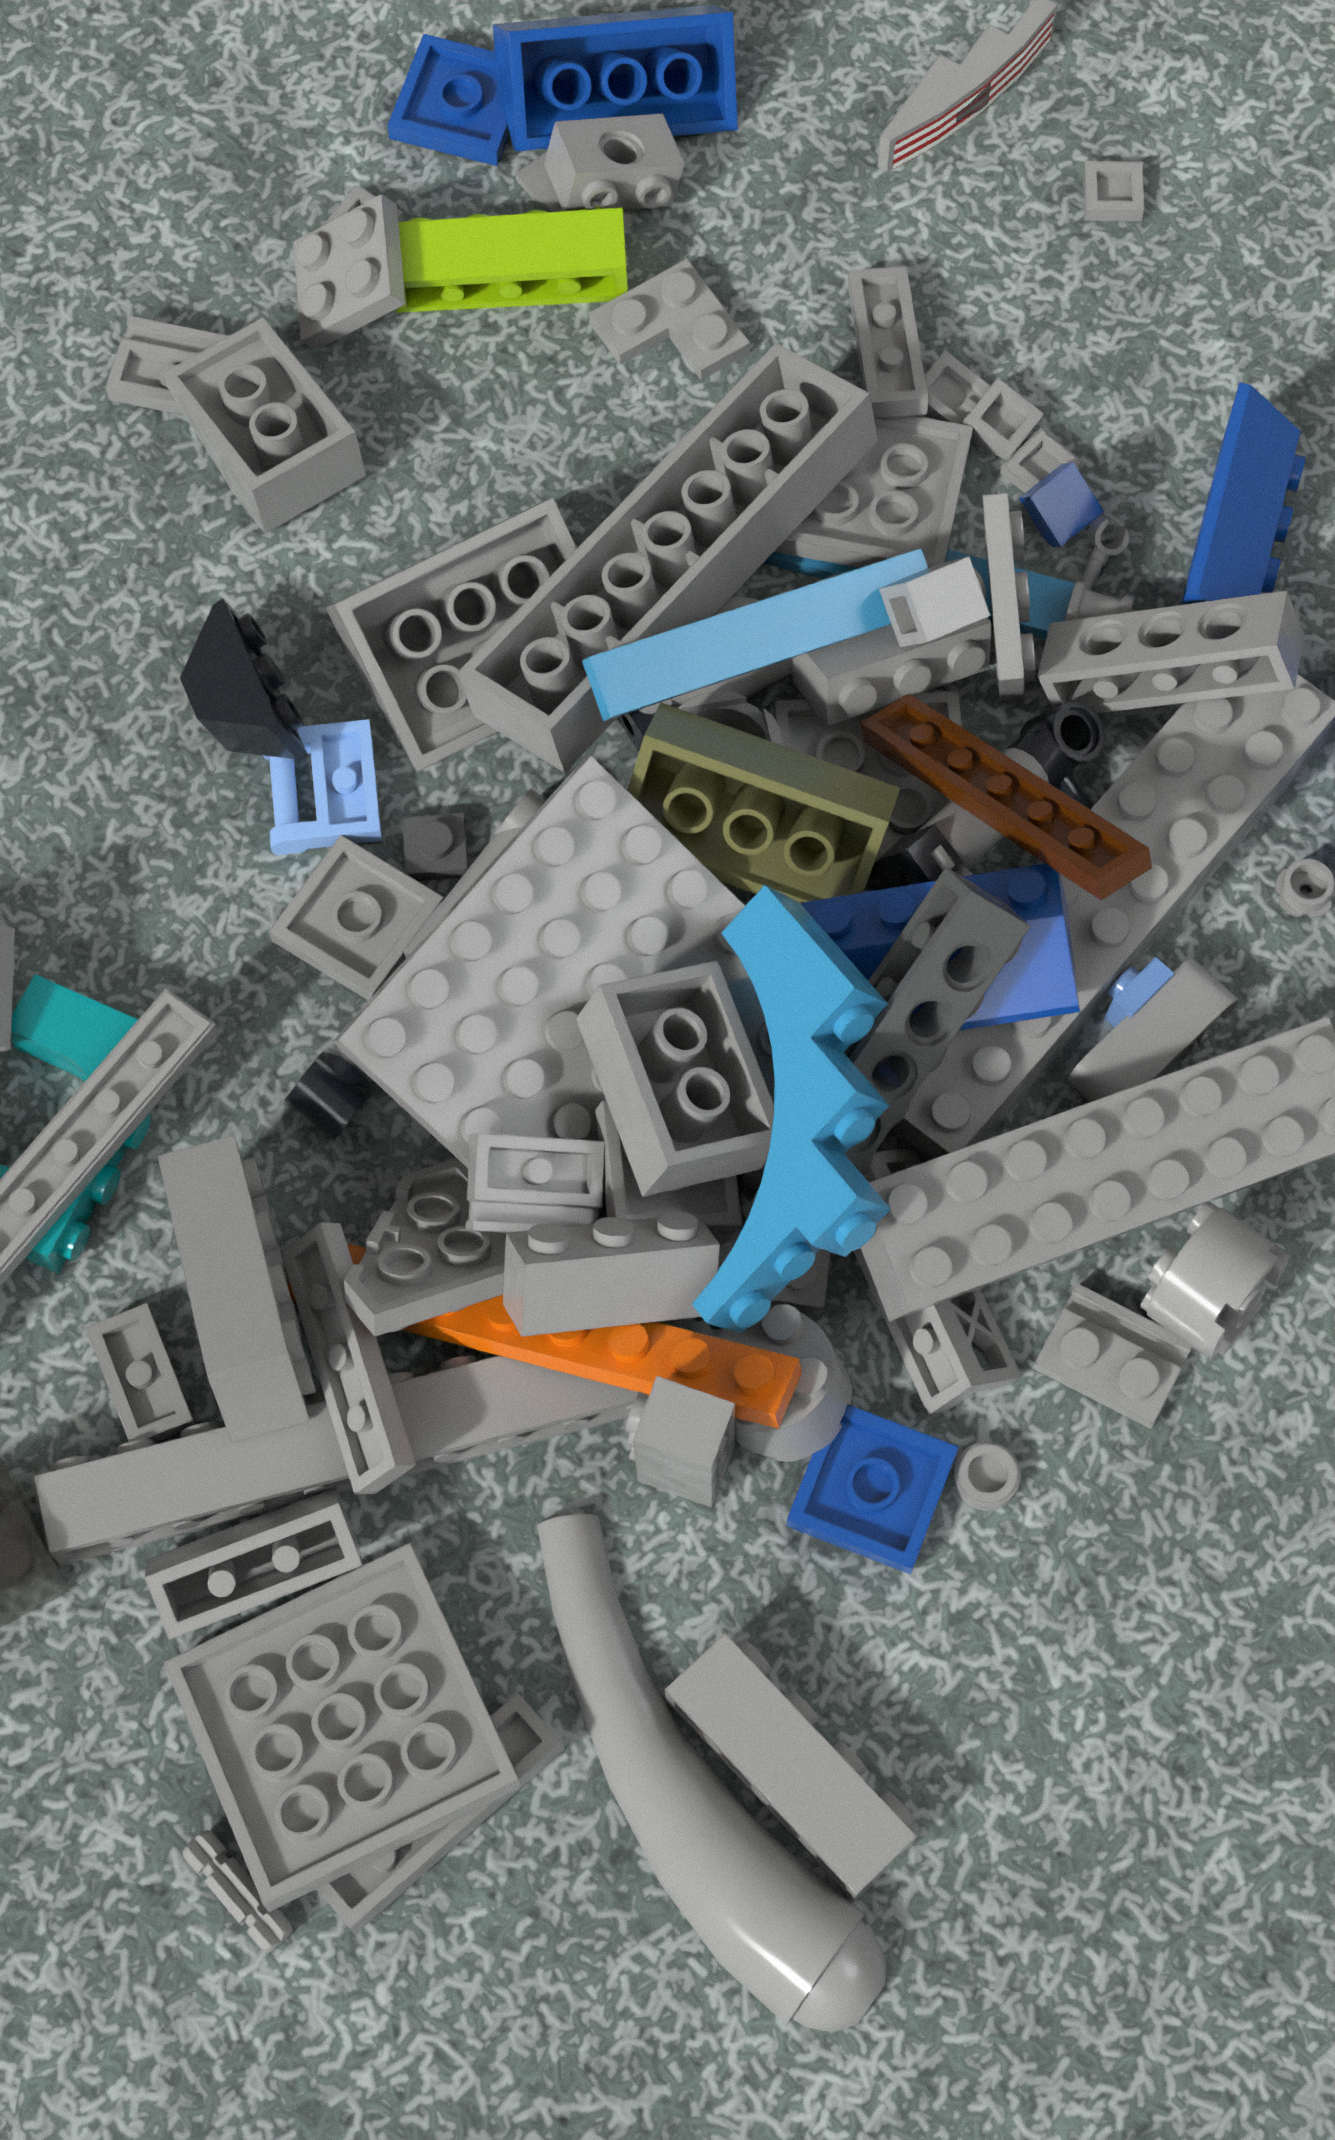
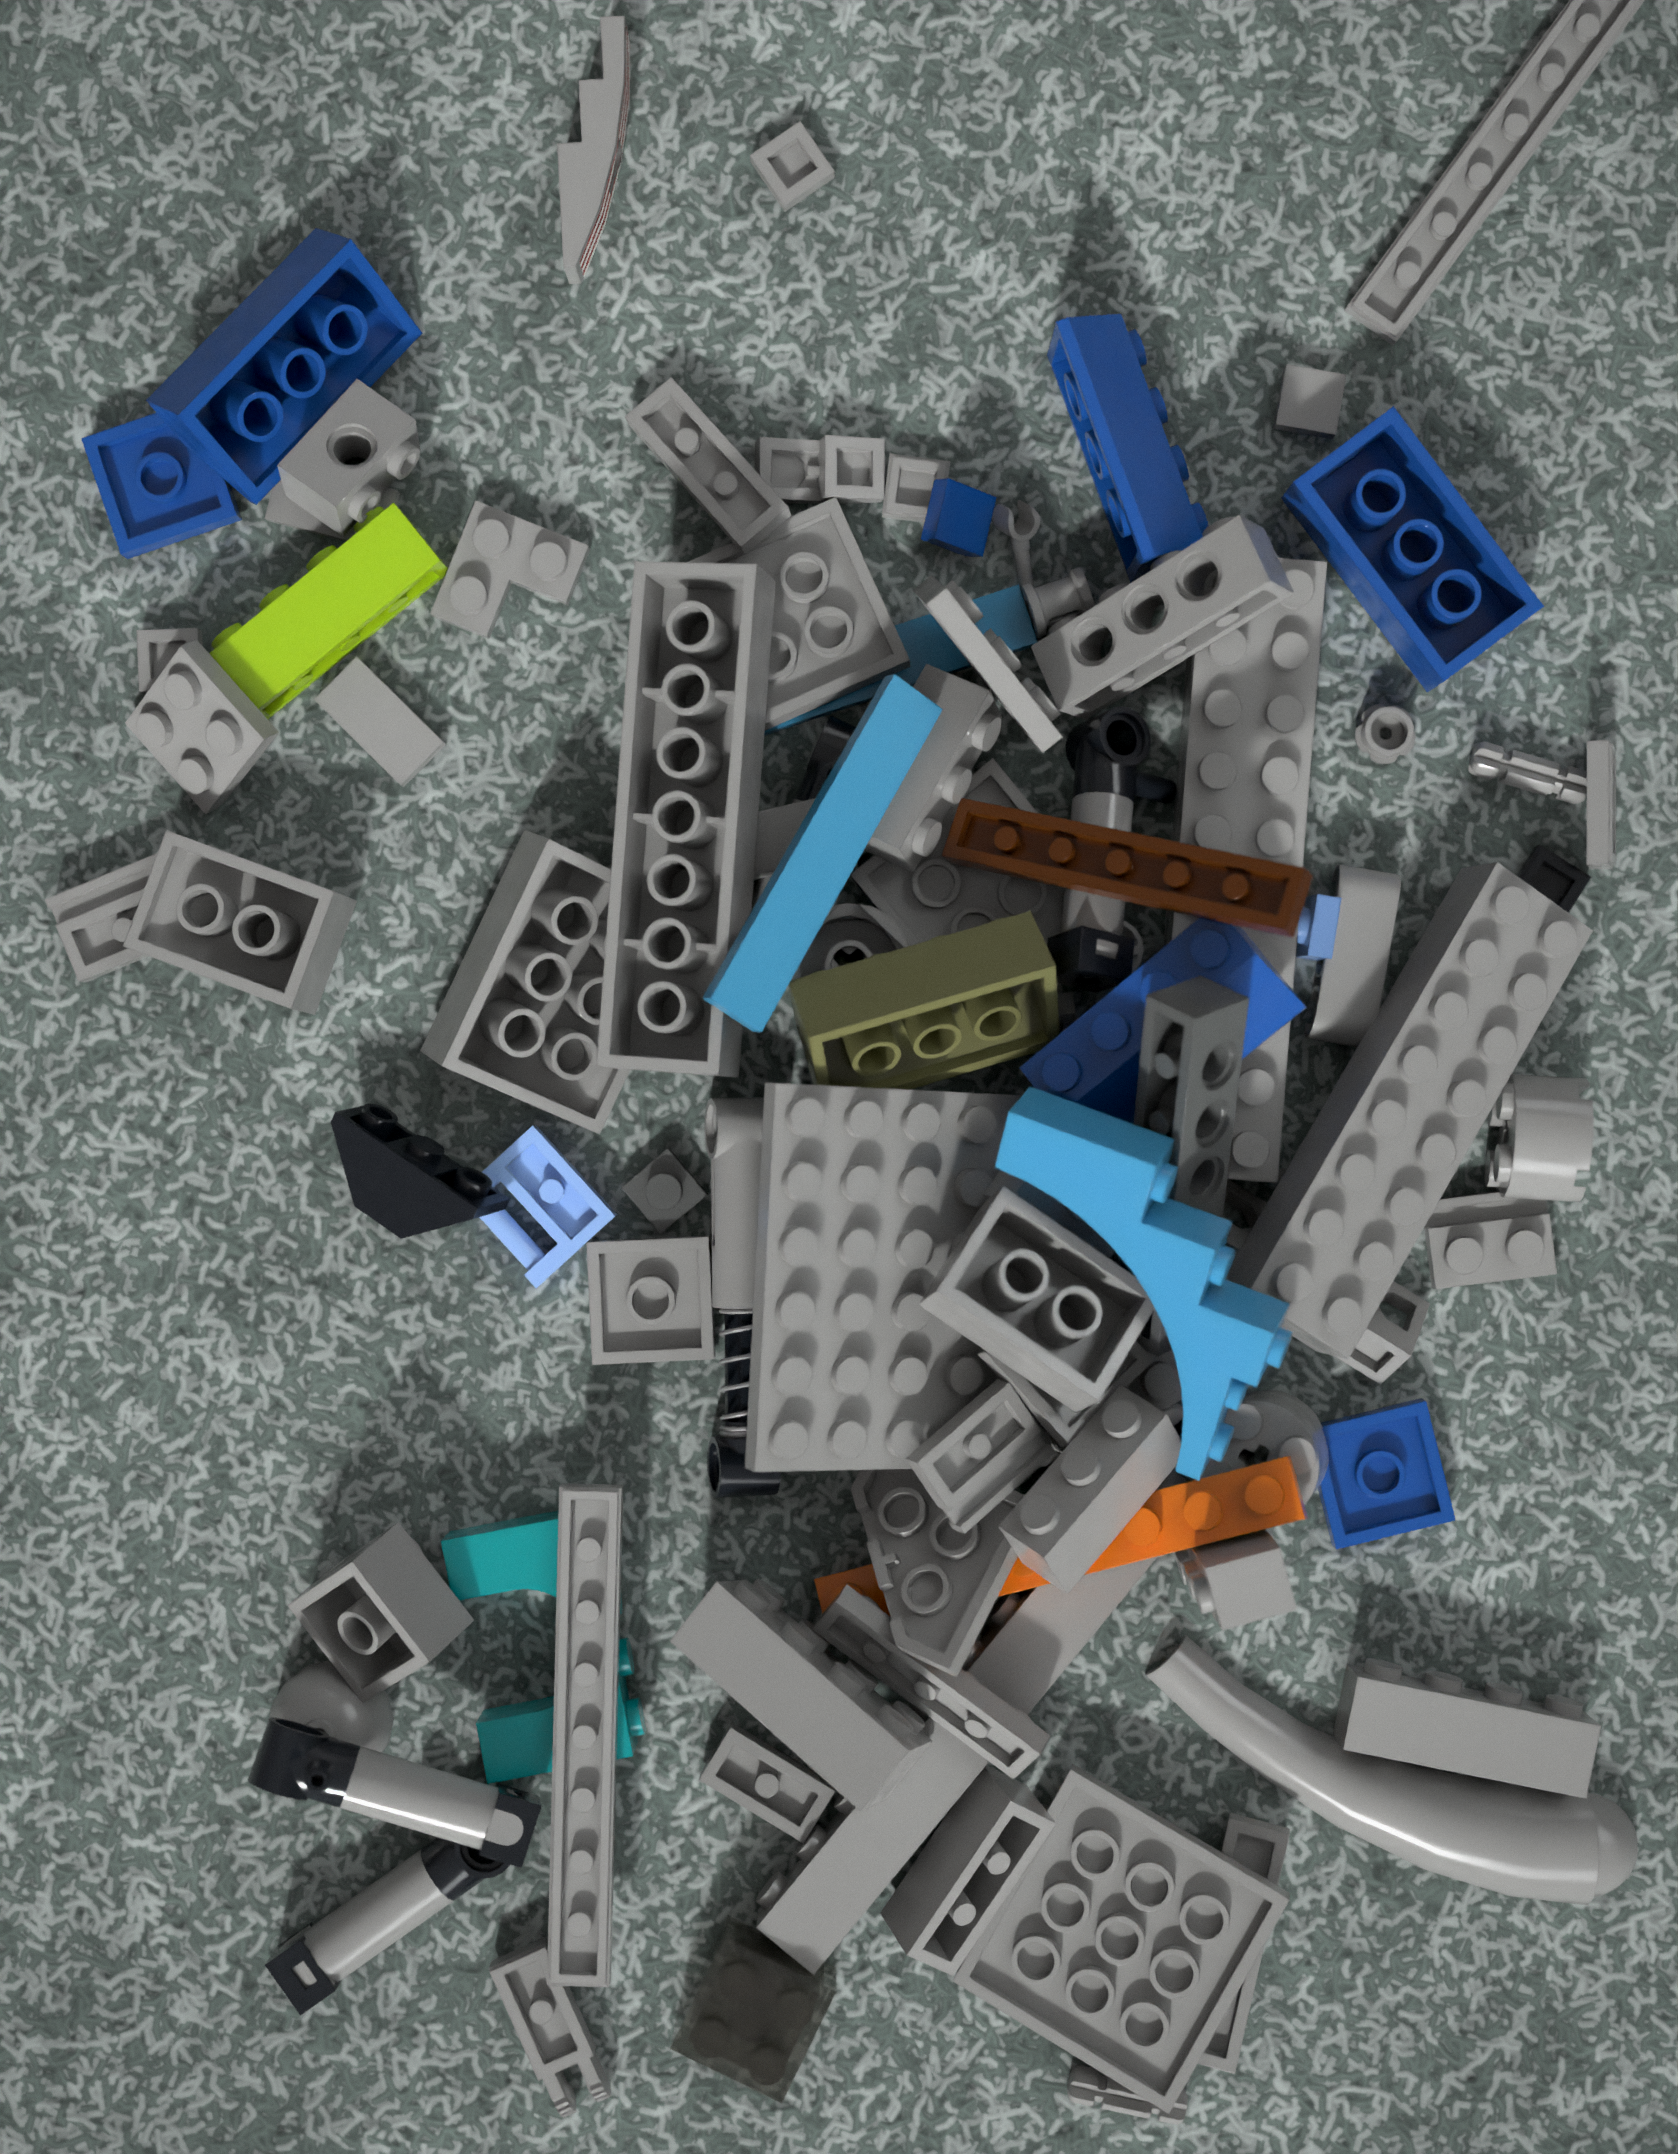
camera: 35 degrees left, 20 degrees up
(488, 365) = (380, 721): none -> light grey tile
(935, 601) = (944, 720): light grey brick -> none
(986, 1476) = (1456, 1400): light grey tile -> none

